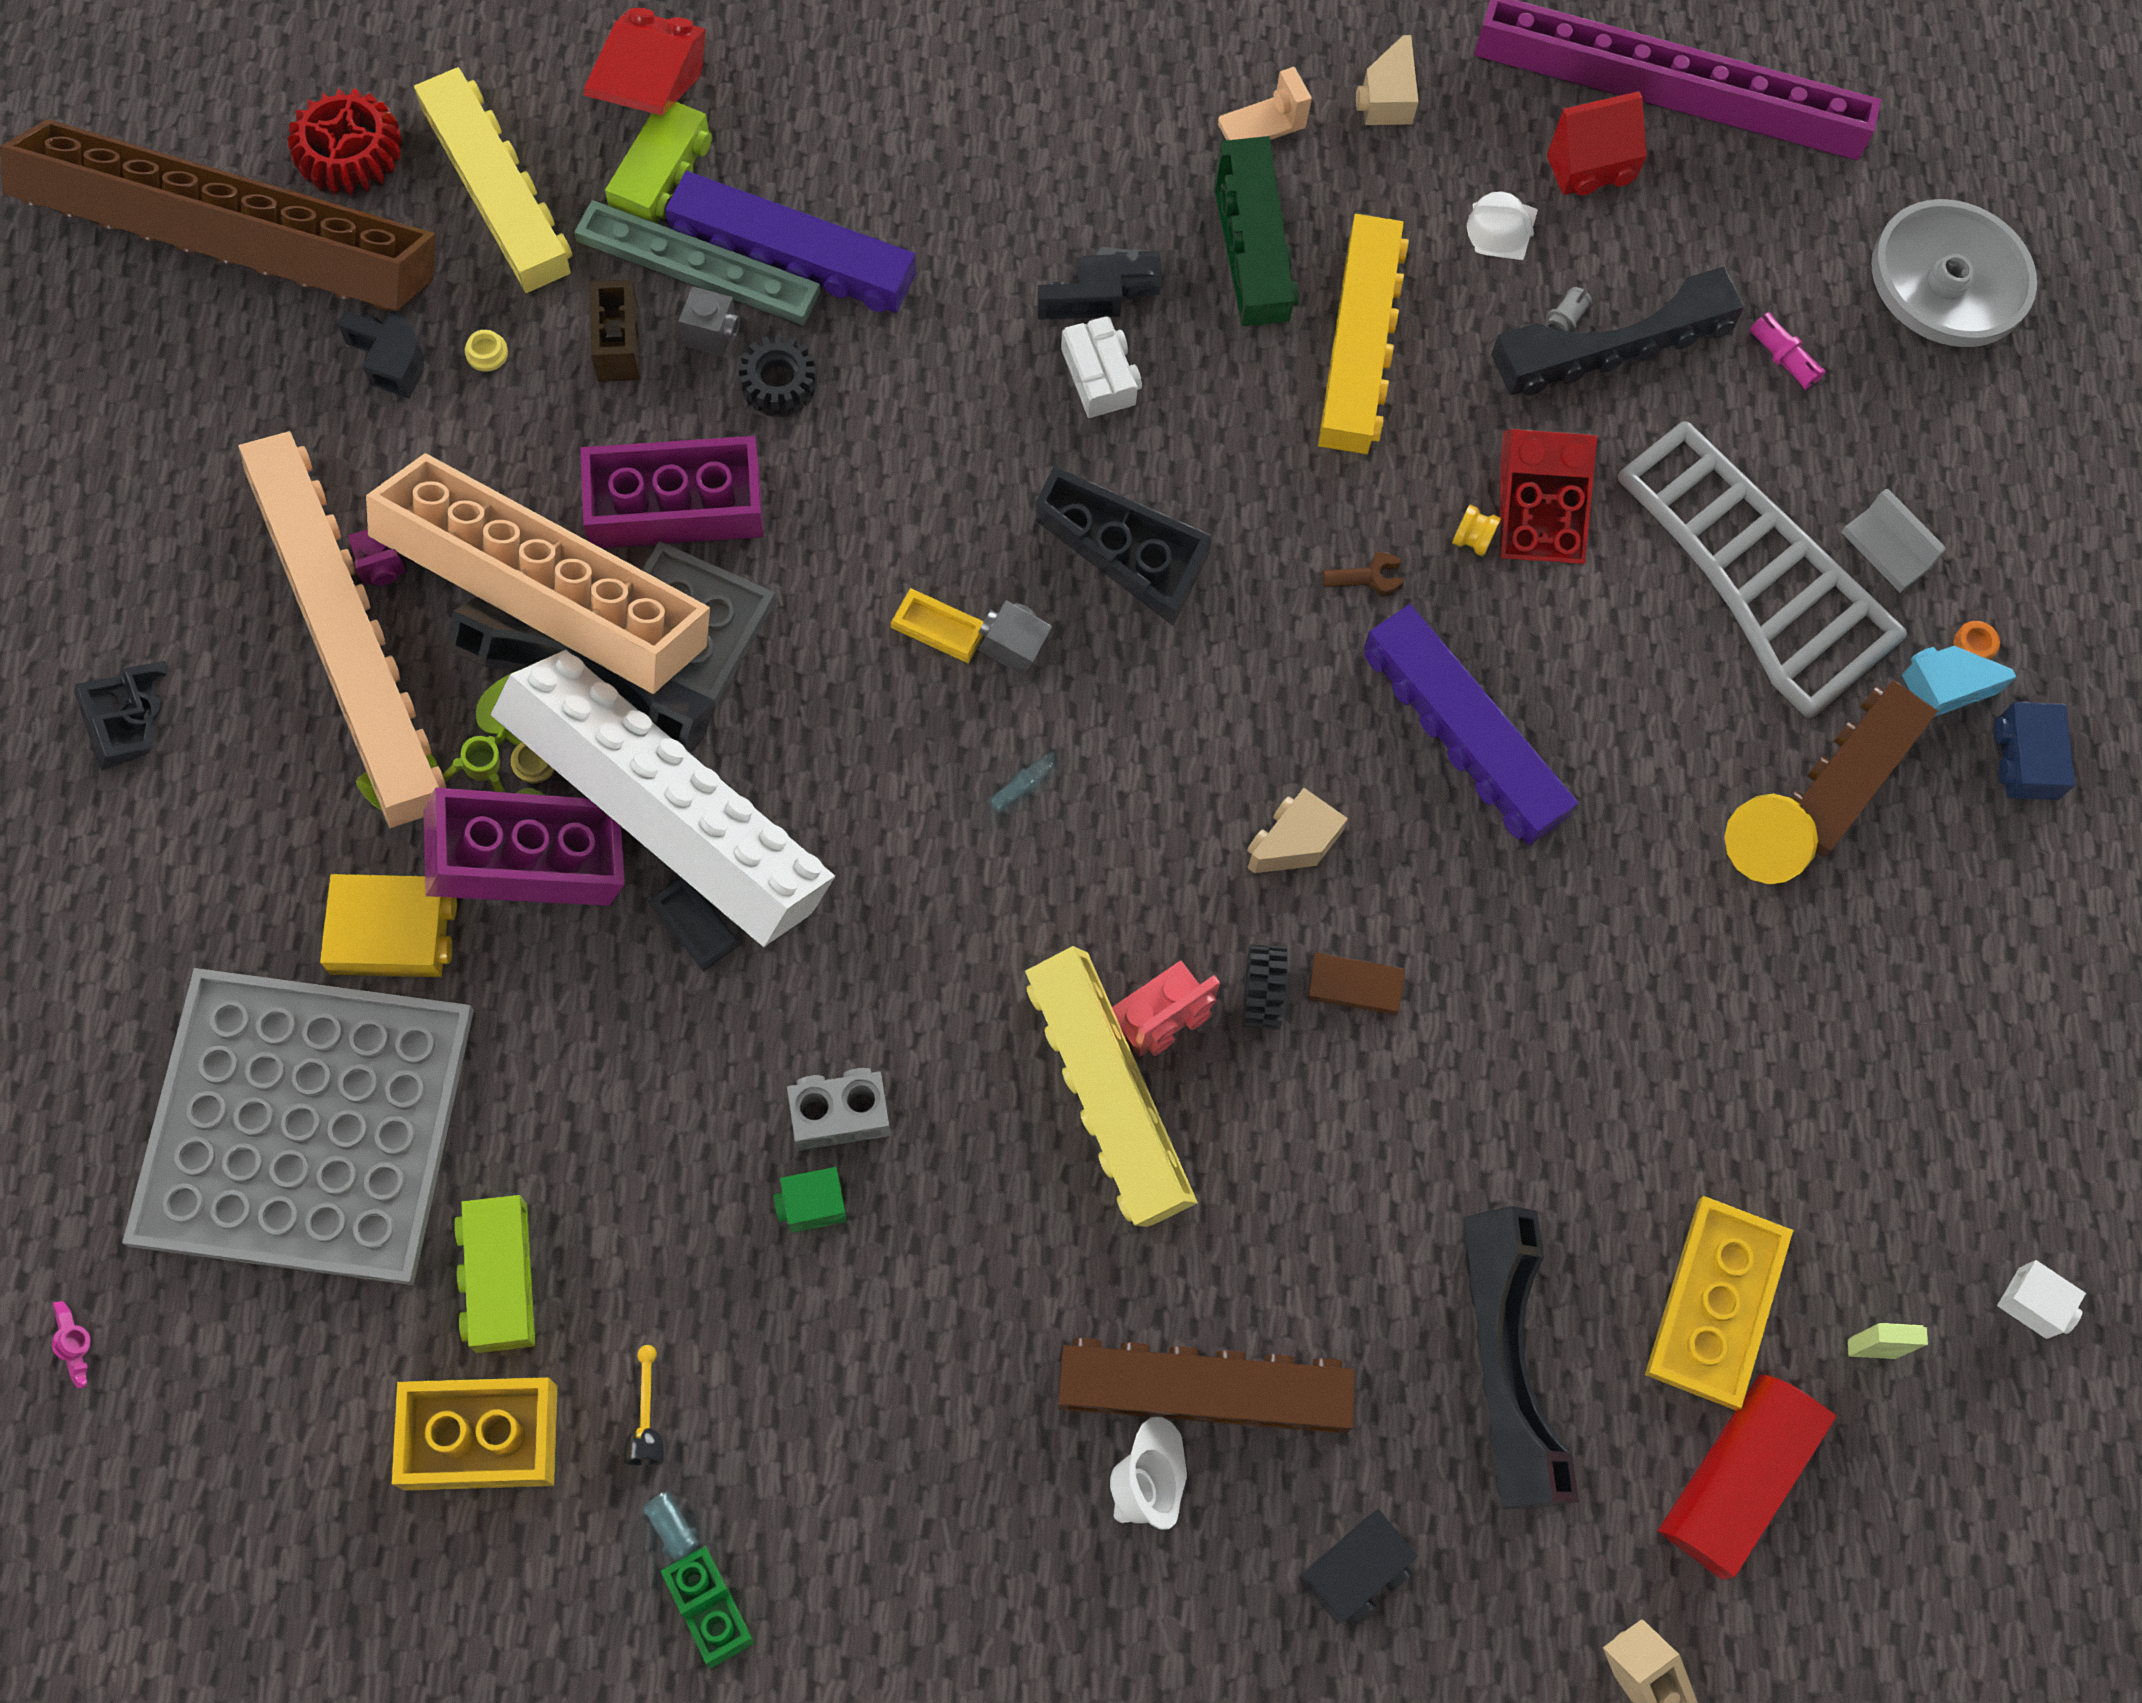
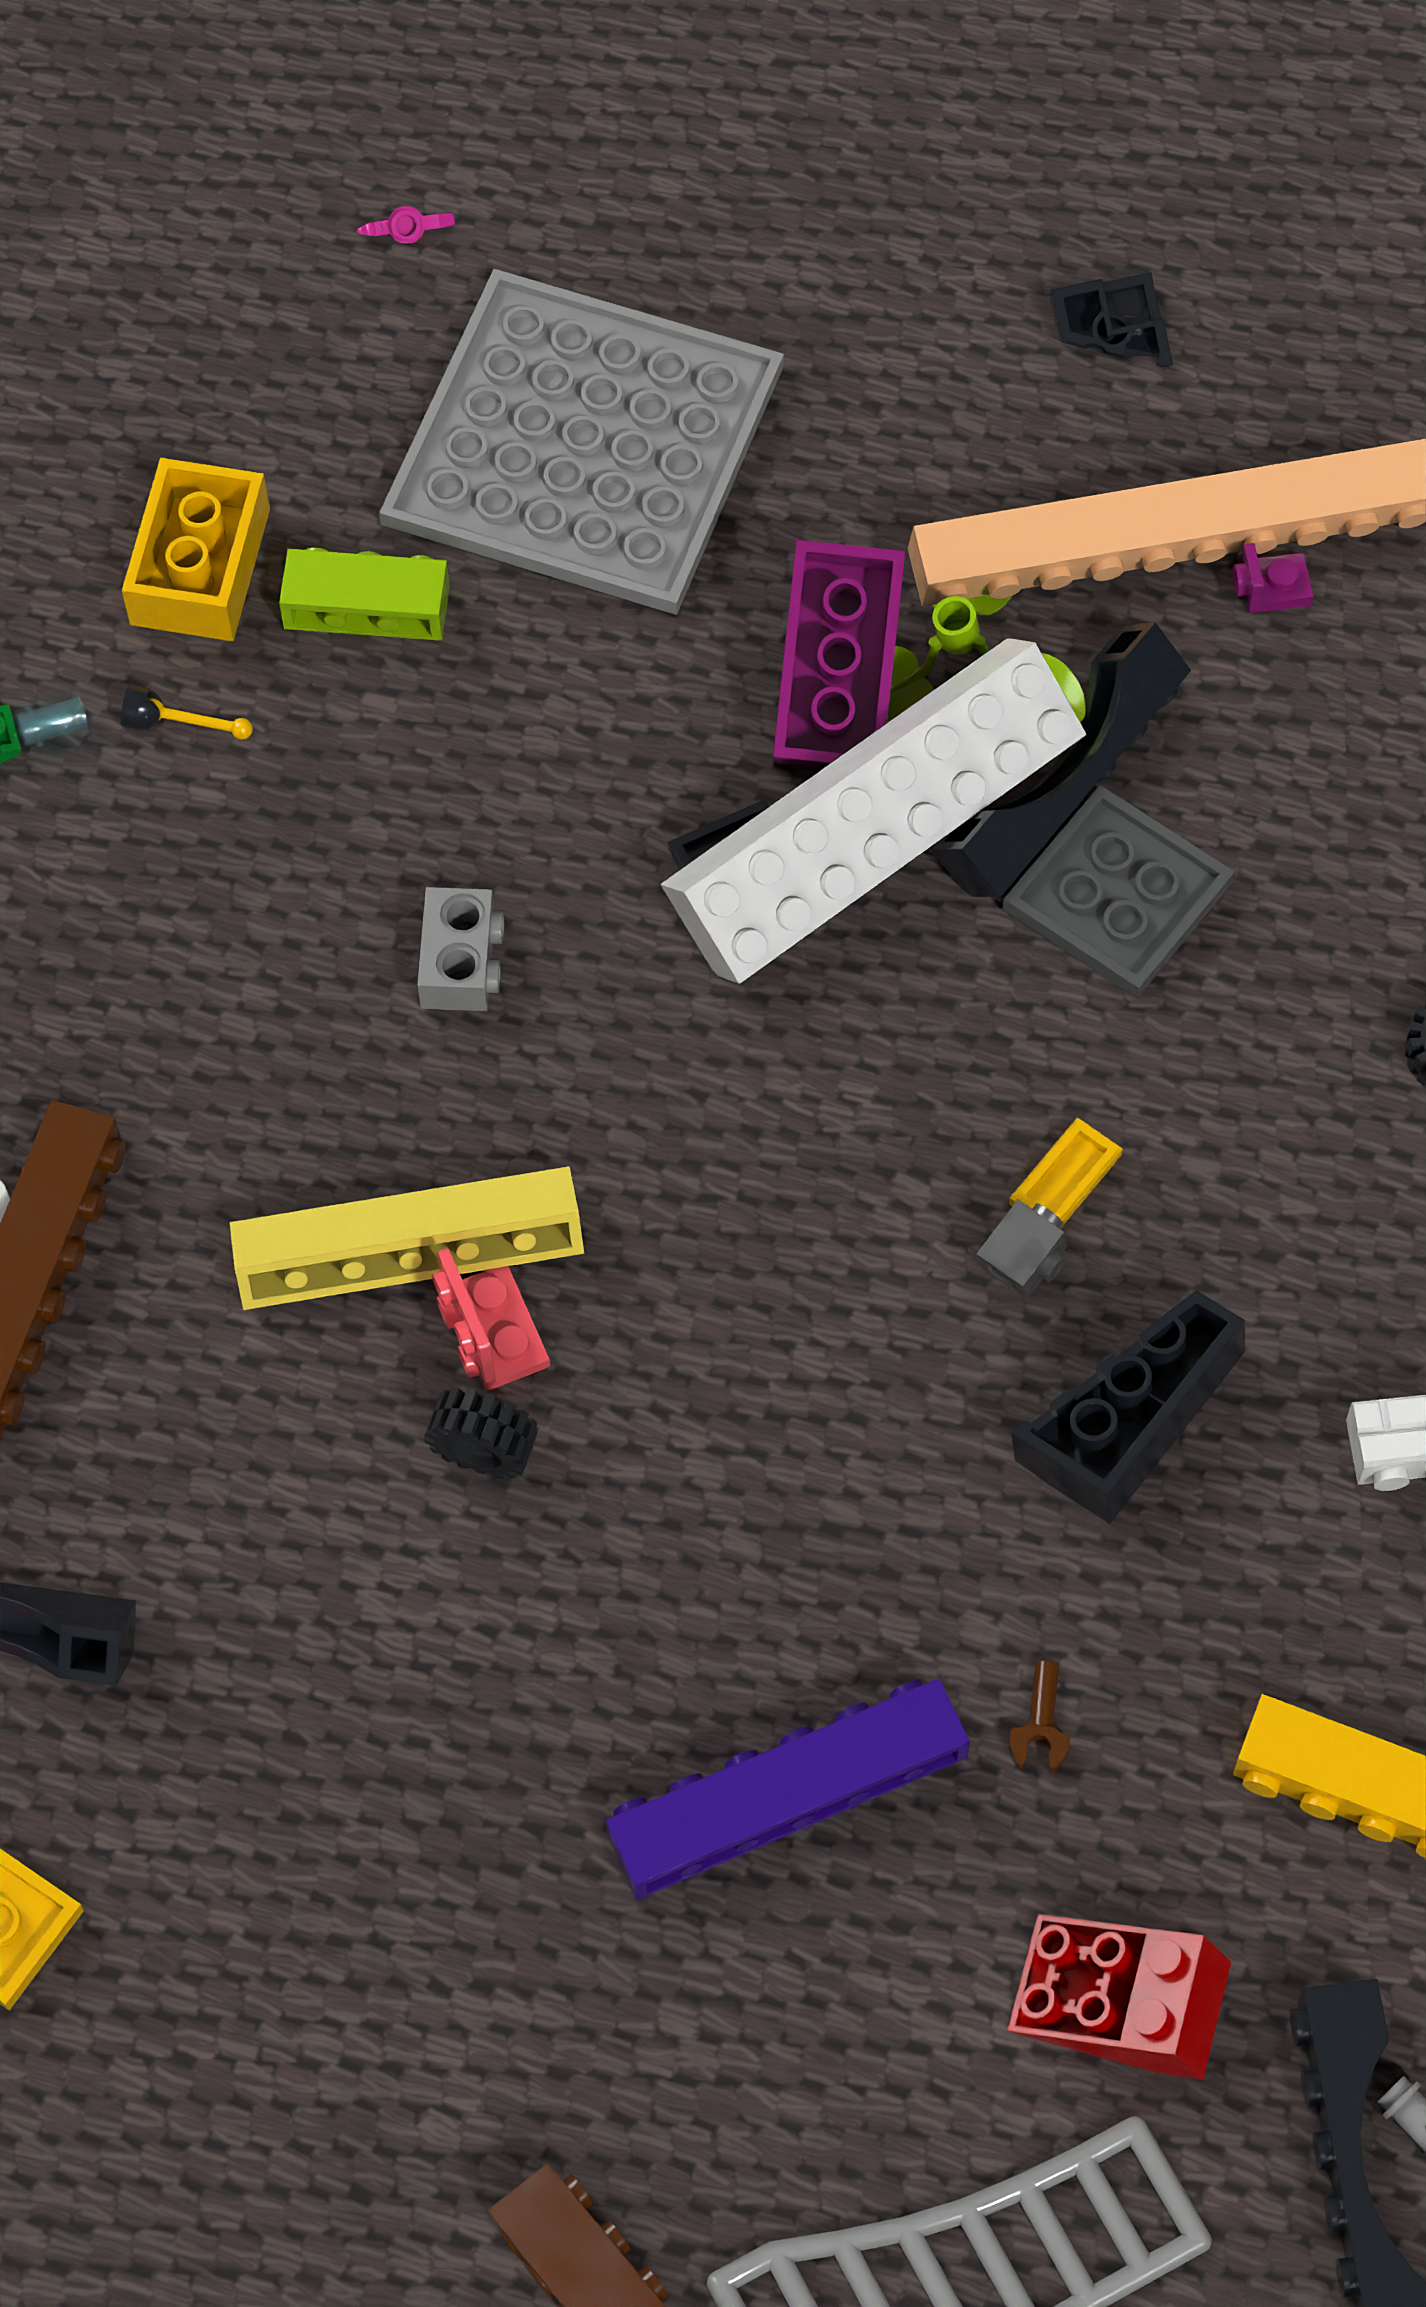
camera: 110 degrees right, 5 degrees down
(385, 927) = (776, 511): yellow brick -> none
(538, 572) = (1194, 719): light nougat brick -> none
(671, 492) = (1296, 891): magenta brick -> none
(810, 1200) = (360, 905): green brick -> none
(1022, 782) = (830, 1233): clear light blue piece -> none
(1299, 838) = (678, 1534): tan slope -> none
(1356, 983) = (470, 1563): reddish brown tile -> none
(1476, 530) = (1077, 1879): yellow wheel -> none
(1771, 839) = (528, 2139): yellow tile -> none

